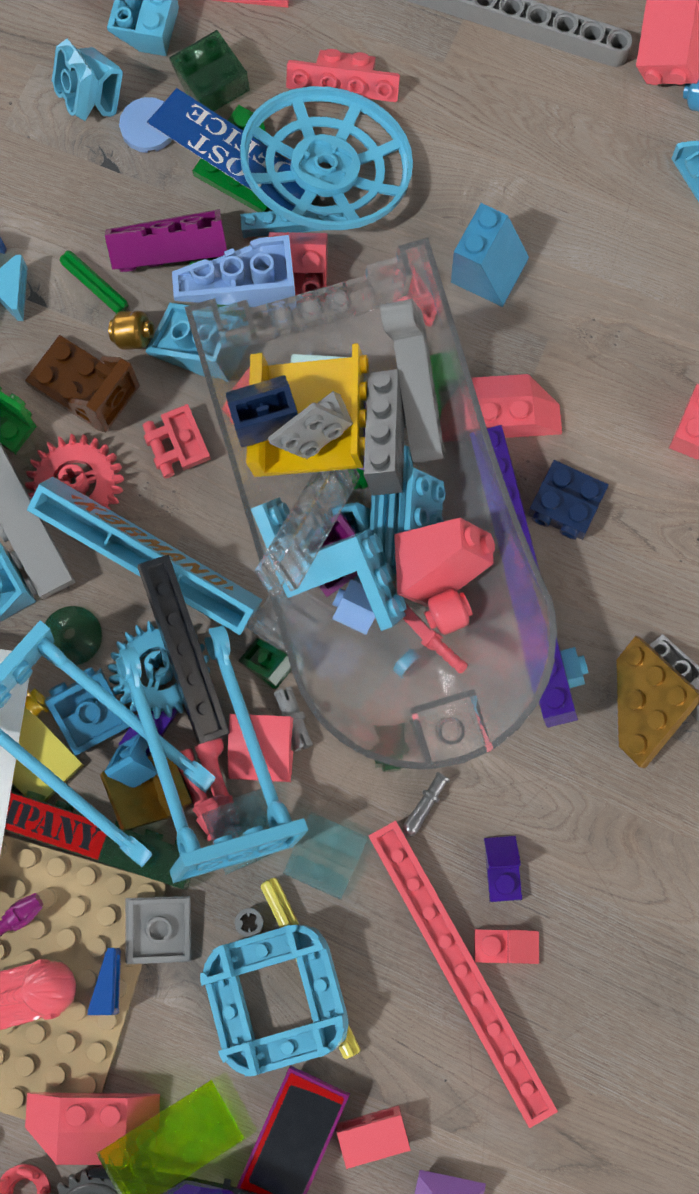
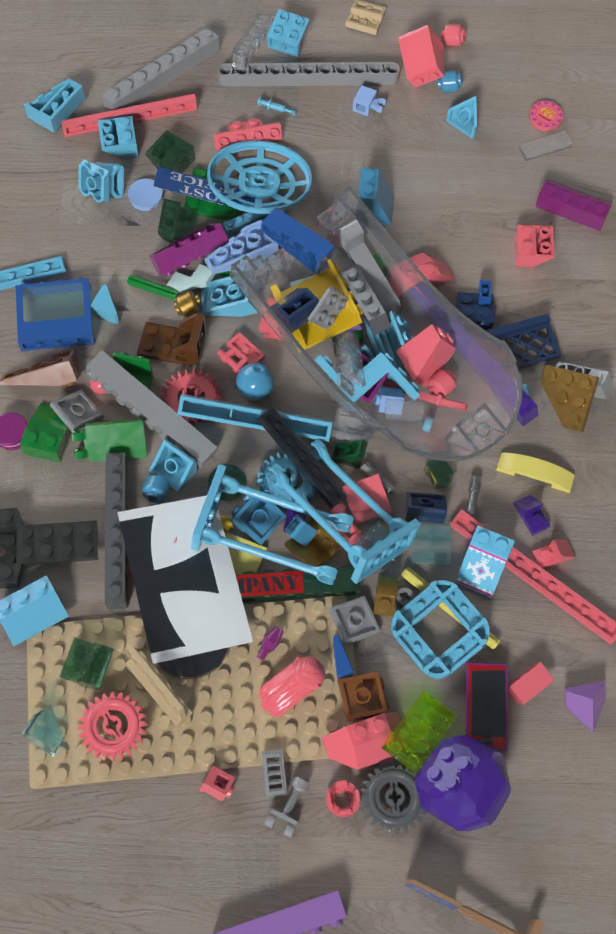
camera: 30 degrees left, 10 degrees down
(116, 1054) = (363, 696): none -> dark orange plate
(142, 294) = (199, 279): none -> light aqua tile
(170, 186) = (175, 221): none -> clear green brick
(173, 495) = (255, 381): none -> dark azure piece
(219, 910) = (385, 595): none -> pearl gold brick
(320, 293) = (298, 240): none -> blue wedge
(344, 791) = (425, 507): none -> dark blue slope
(365, 632) = (403, 410): none -> clear tile
(391, 919) = (485, 561): none -> medium azure slope
(409, 43) = (275, 106): none -> medium azure piece
(542, 802) = (537, 469): none -> light yellow slope
(556, 82) = (366, 101): none -> light blue brick
(592, 479) = (484, 293): none -> blue piece
(619, 559) = (527, 327): none -> dark blue fence

